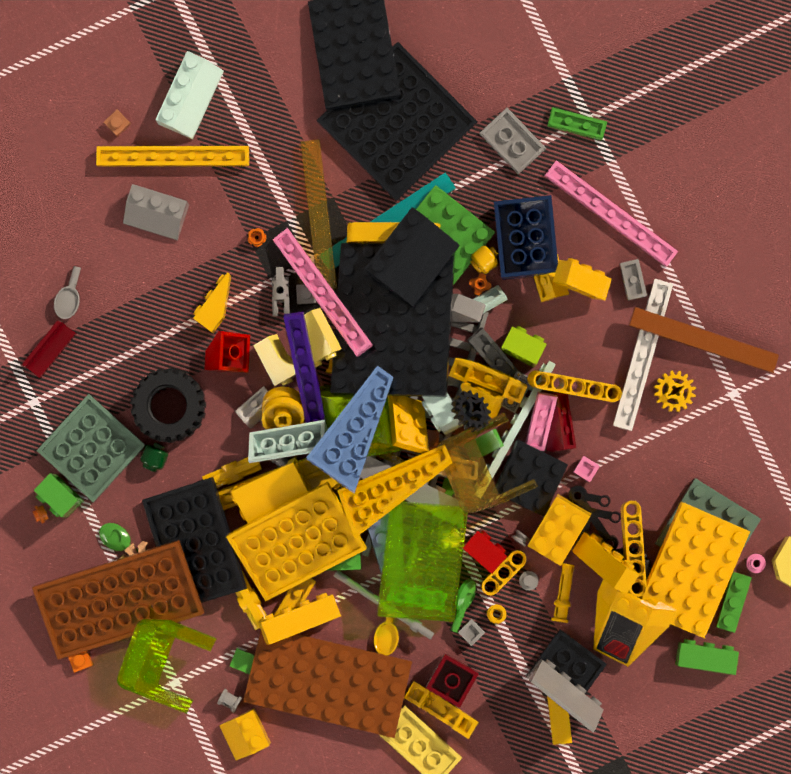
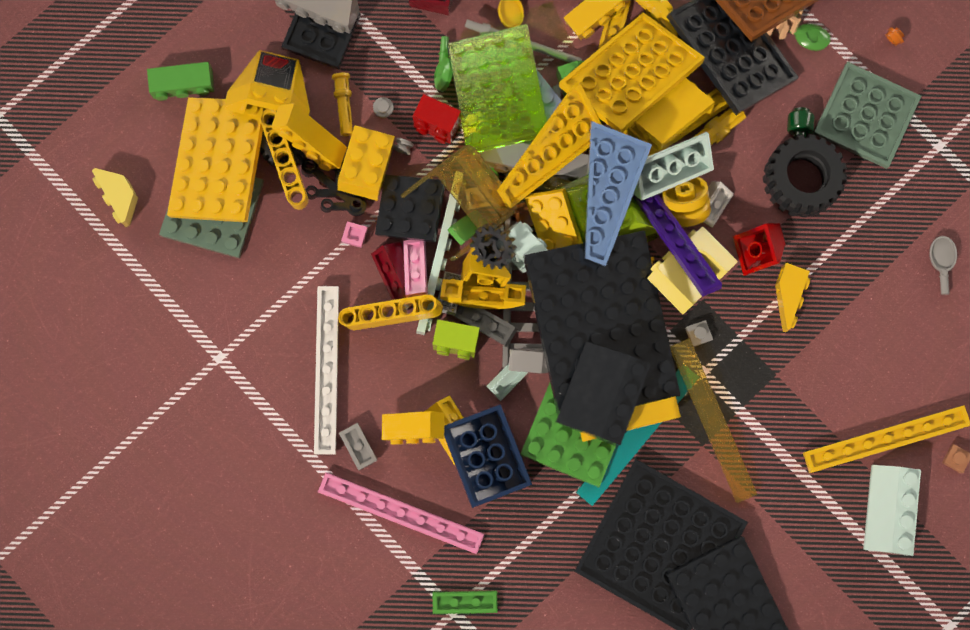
camera: 160 degrees right, 5 degrees down
(49, 349) = (944, 202): dark red panel -> none
(58, 496) = (884, 55): bright green brick -> none
(155, 212) = (885, 374): light grey slope -> none
(256, 232) = (774, 374): orange plate -> none
(280, 282) = (729, 337): light grey hinge -> none
(322, 292) = (684, 334): bright pink tile -> none
(471, 632) = (427, 41): light grey plate -> none
(480, 279) = (526, 395): orange plate -> none
(484, 259) = (523, 421): yellow head -> none
(501, 618) = (409, 61): yellow plate -> none
(512, 141) = (529, 562): light grey tile -> none
(512, 568) = (405, 115): yellow beam -> none
(669, 383) = (276, 346): yellow gear -> none
(703, 340) = (266, 402): dark orange tile -> none
(733, 602) = (167, 144): bright green plate -> none
(749, 563) = (153, 194): bright pink plate -> none

